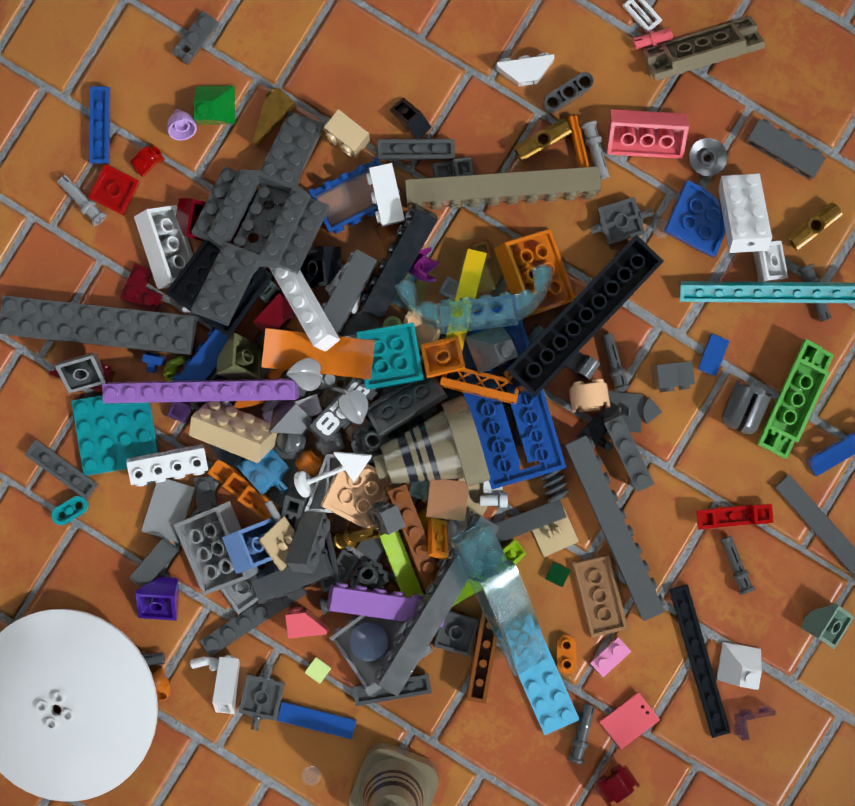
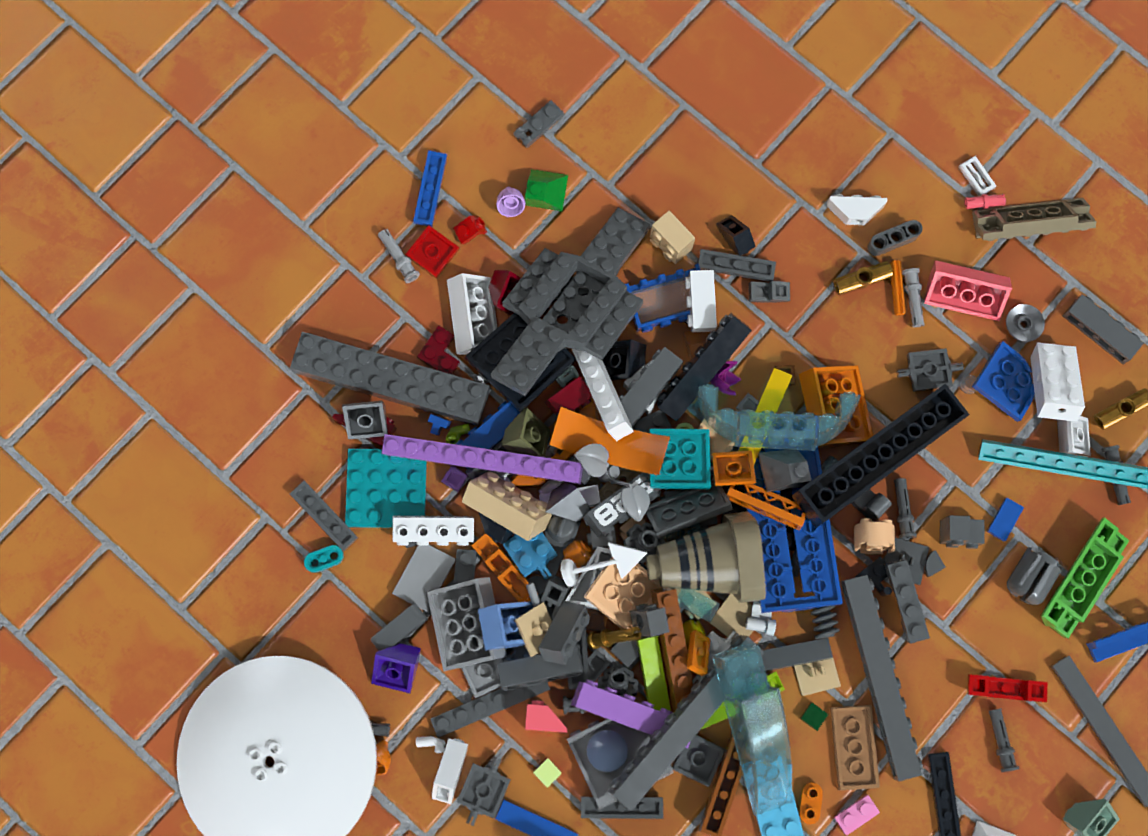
camera: 10 degrees right, 10 degrees down
(273, 113) = (604, 204): pearl gold slope -> none
(447, 499) = (715, 614): nougat tile -> none
(504, 187) = (820, 316): dark tan brick -> none

